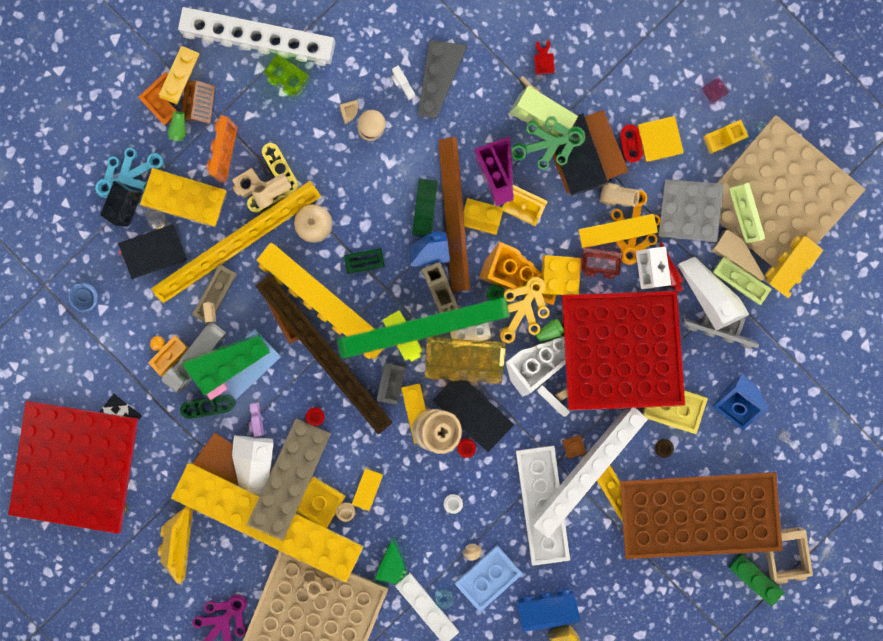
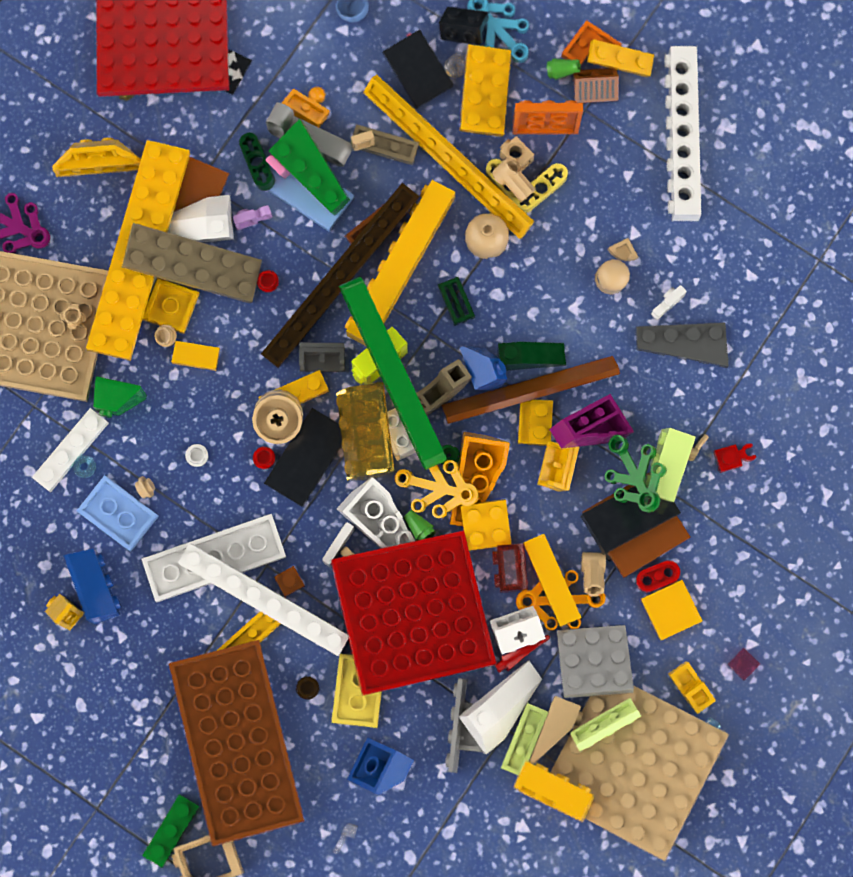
camera: 80 degrees right, 10 degrees down
(289, 72) = (650, 175): clear neon green brick -> none

